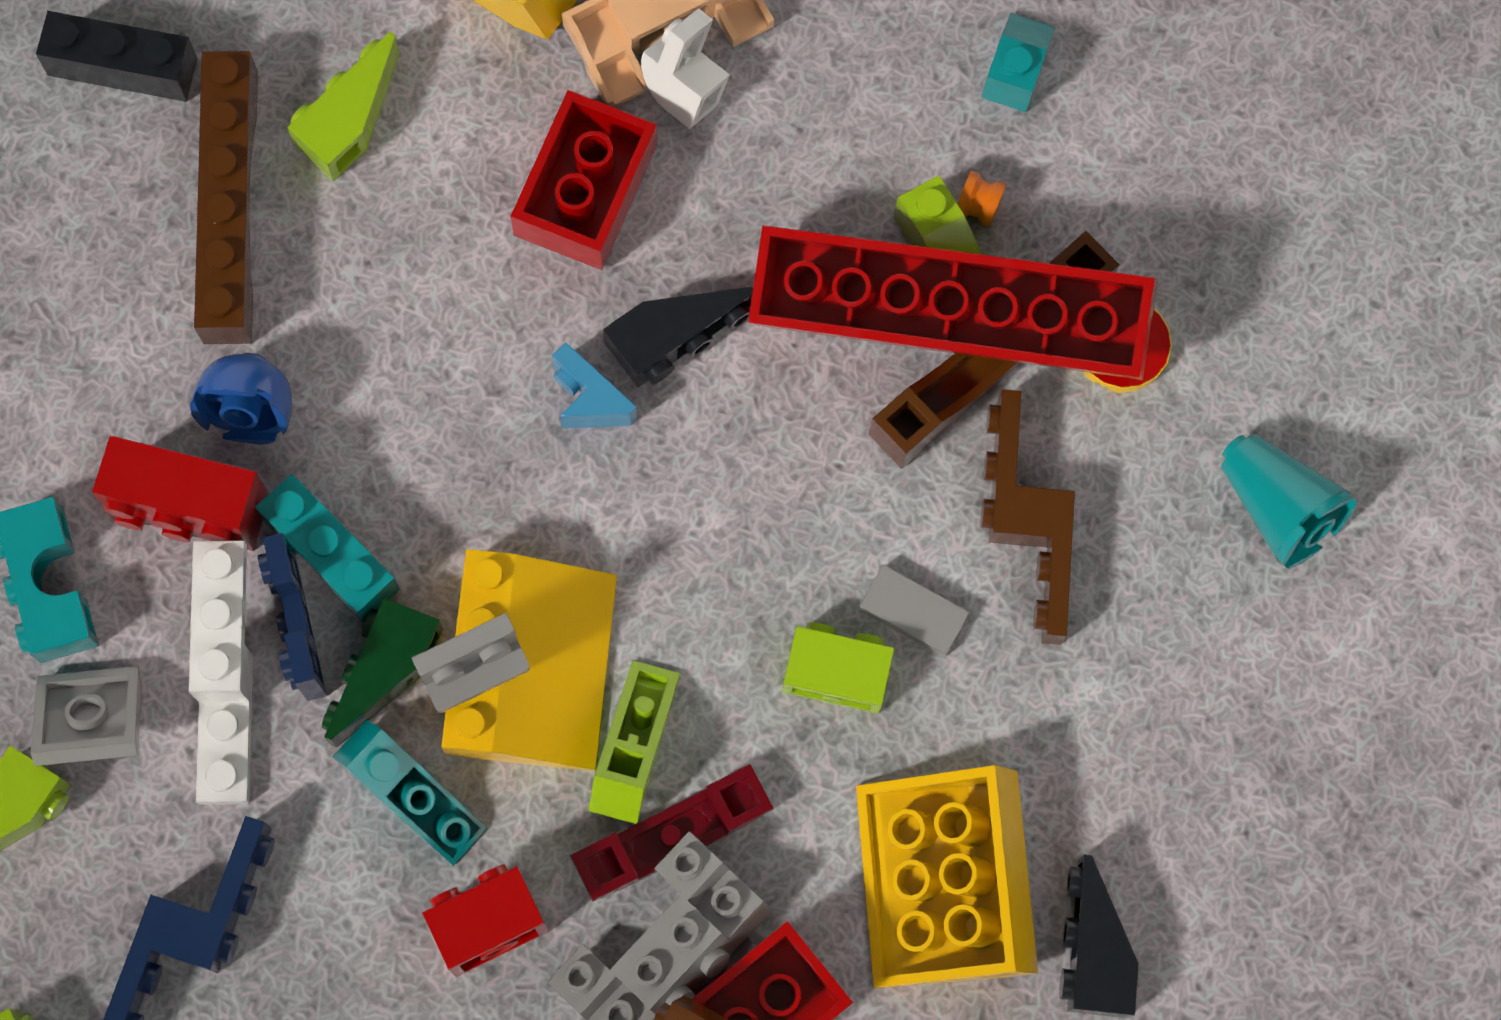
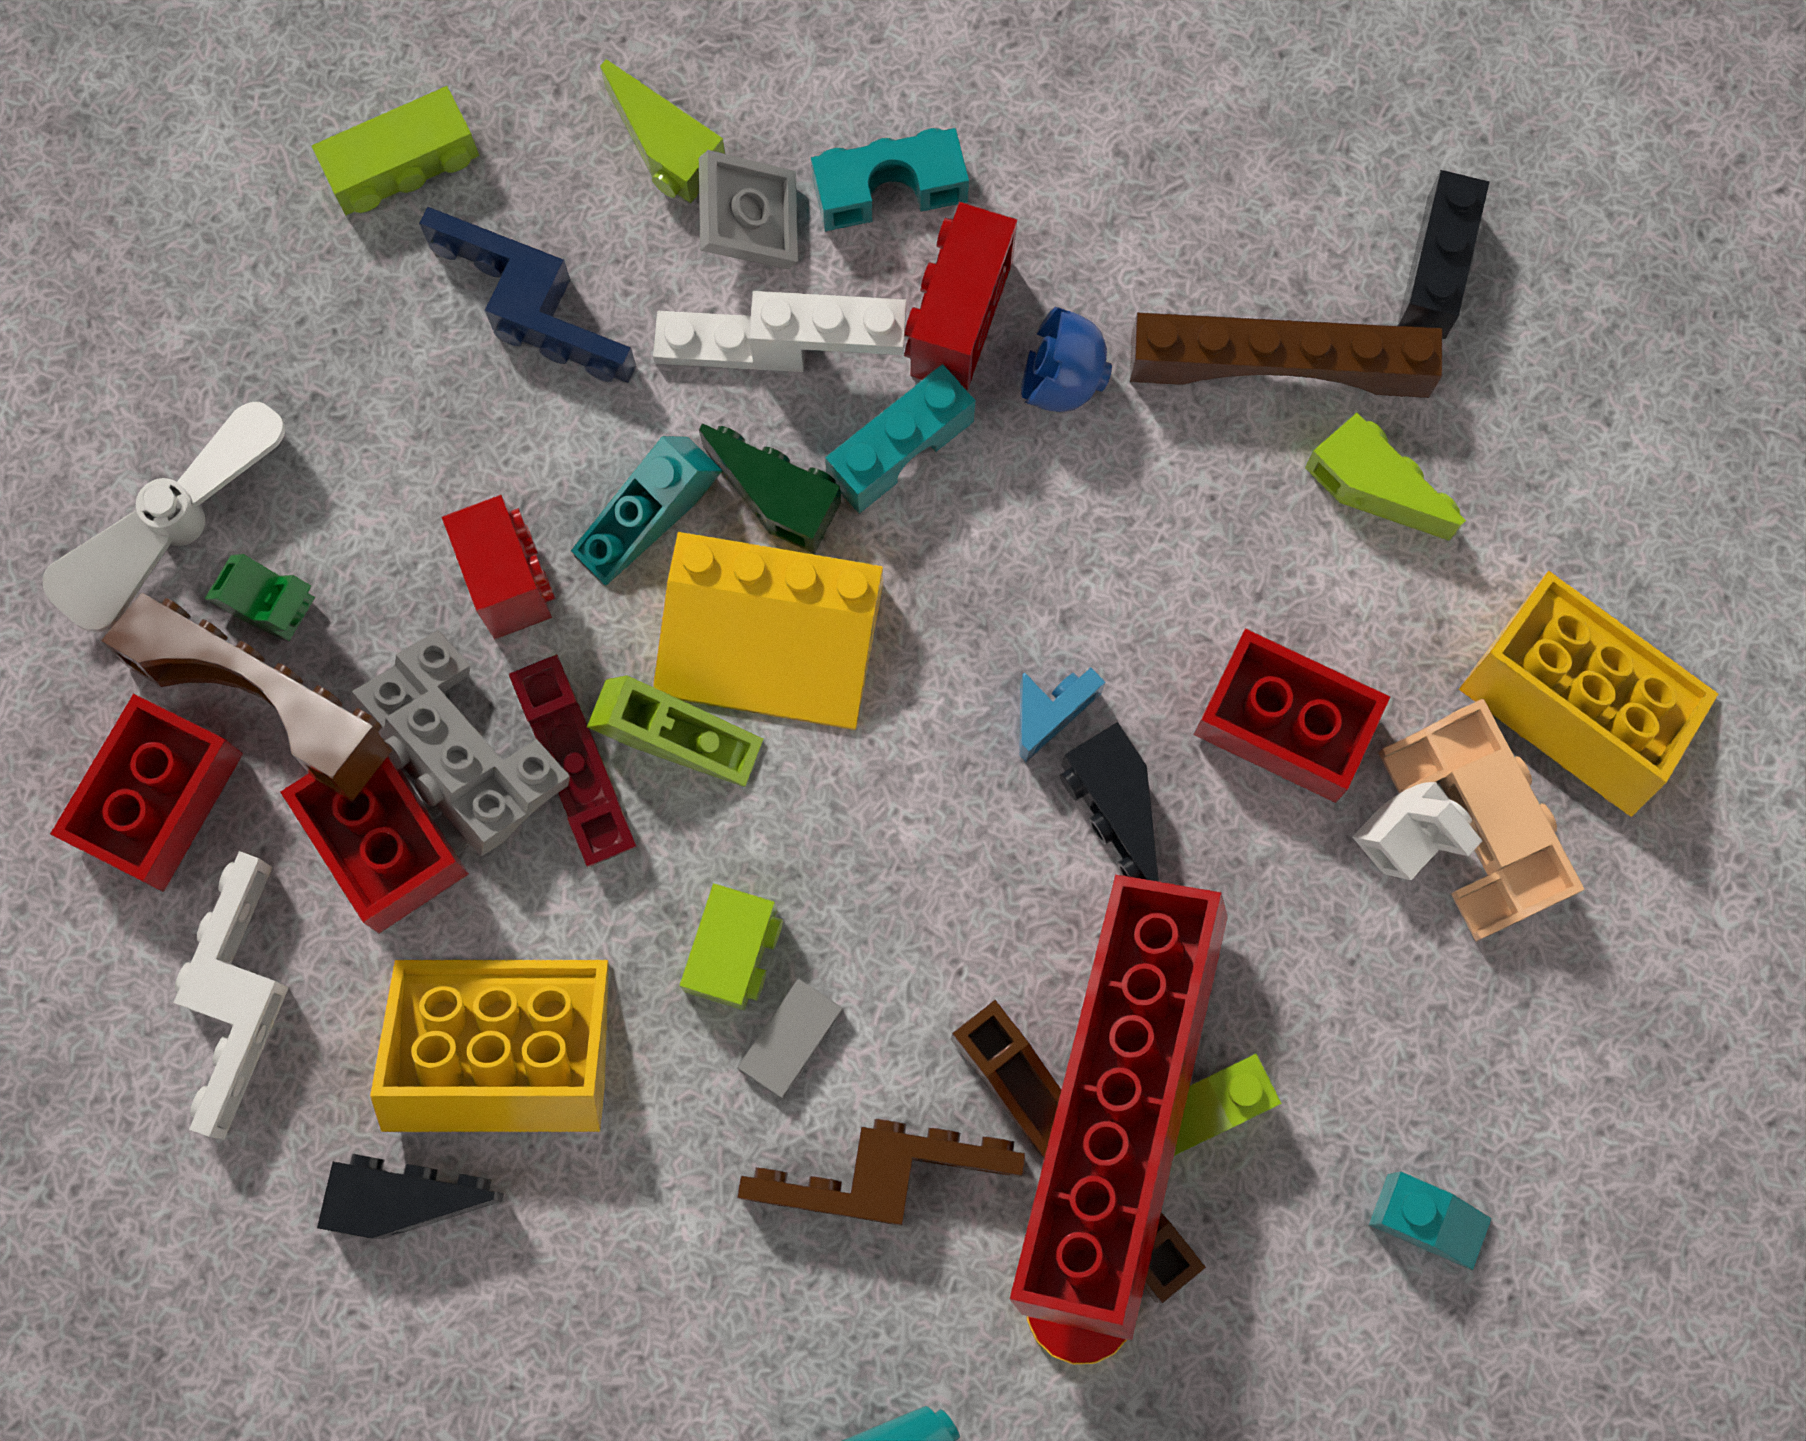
camera: 100 degrees right, 0 degrees up
(300, 660) = (781, 409): dark blue plate -> none
(471, 663) = (750, 556): light grey bracket -> none
(981, 198) = (1259, 1156): orange wheel -> none

